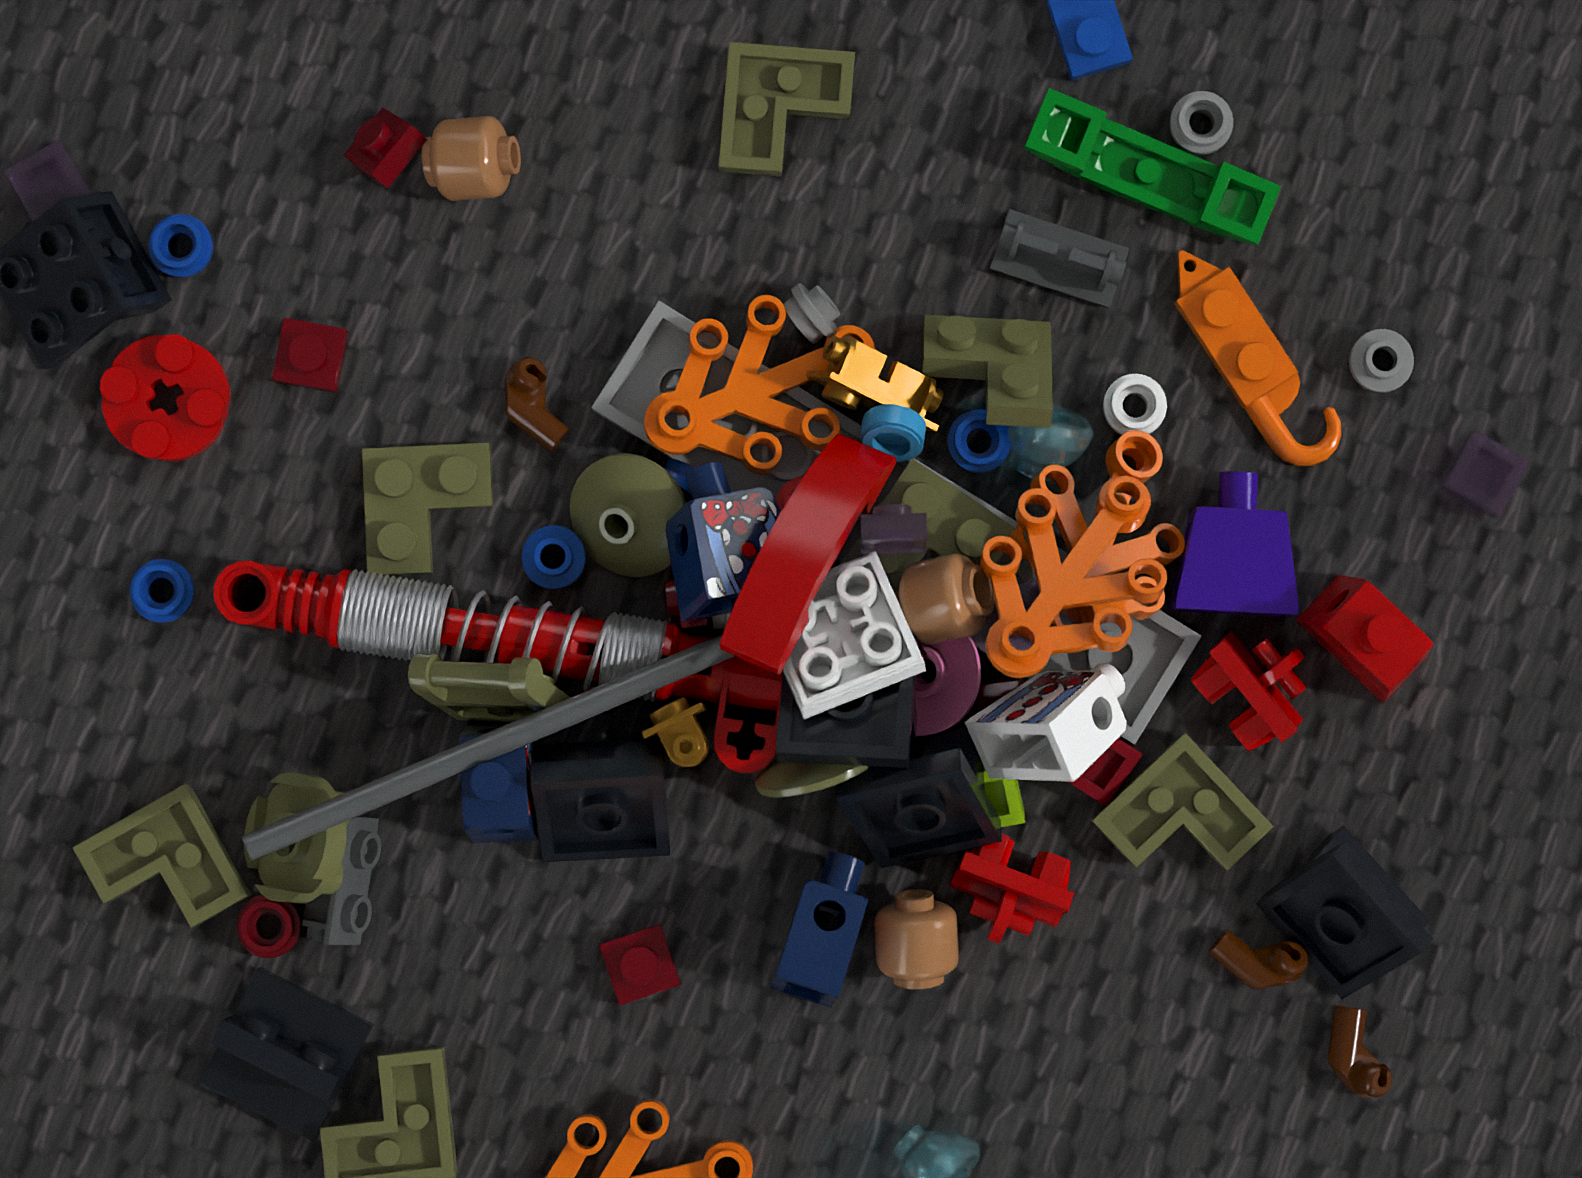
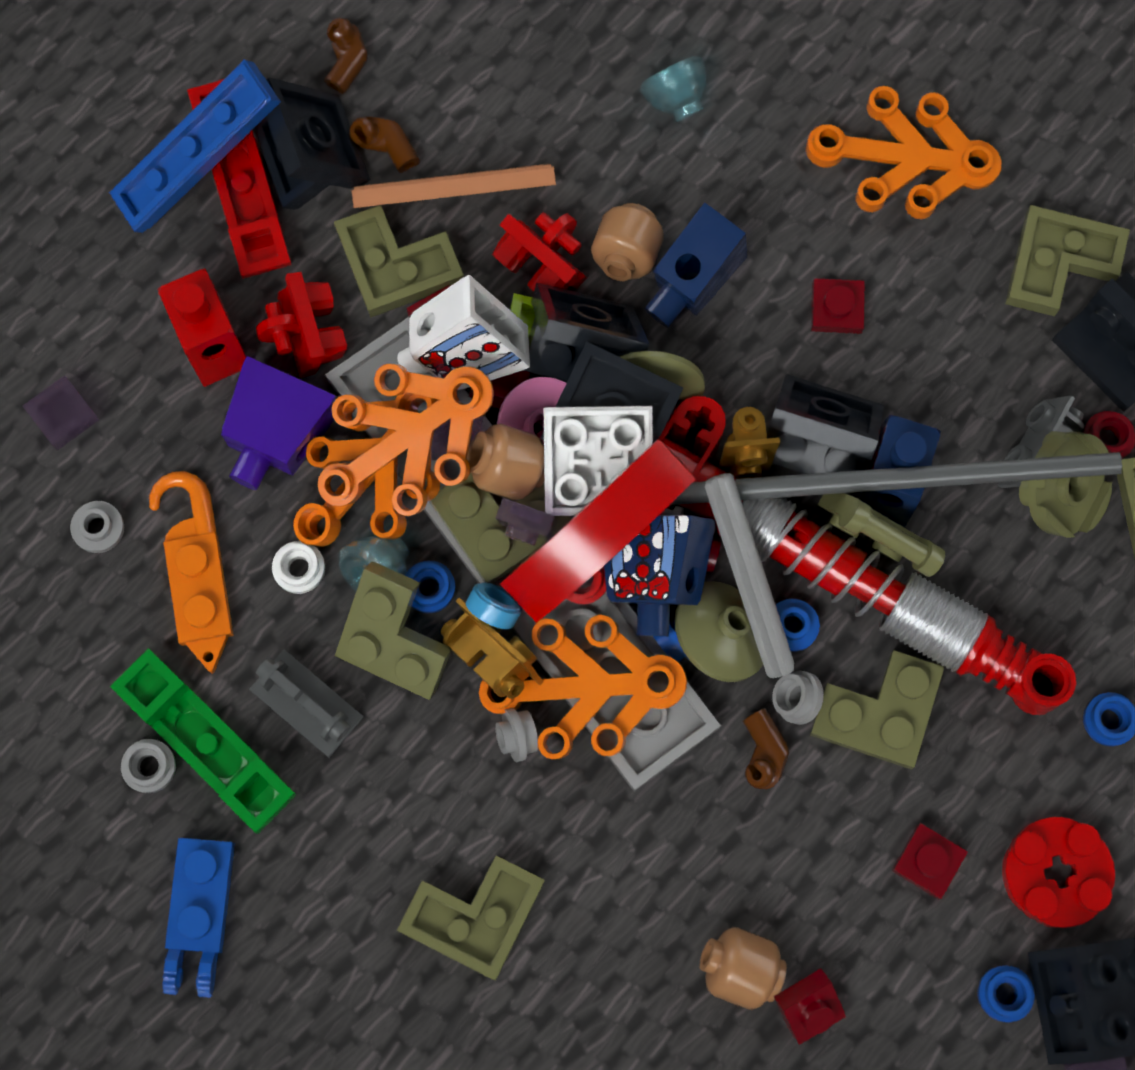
camera: 155 degrees left, 10 degrees down
(518, 476) = (798, 697): none -> light grey plate
(621, 580) = (749, 575): none -> light grey axle
(1151, 929) = (453, 185): none -> nougat tile
(1408, 839) = (247, 203): none -> red slope
(1475, 846) = (195, 146): none -> blue tile

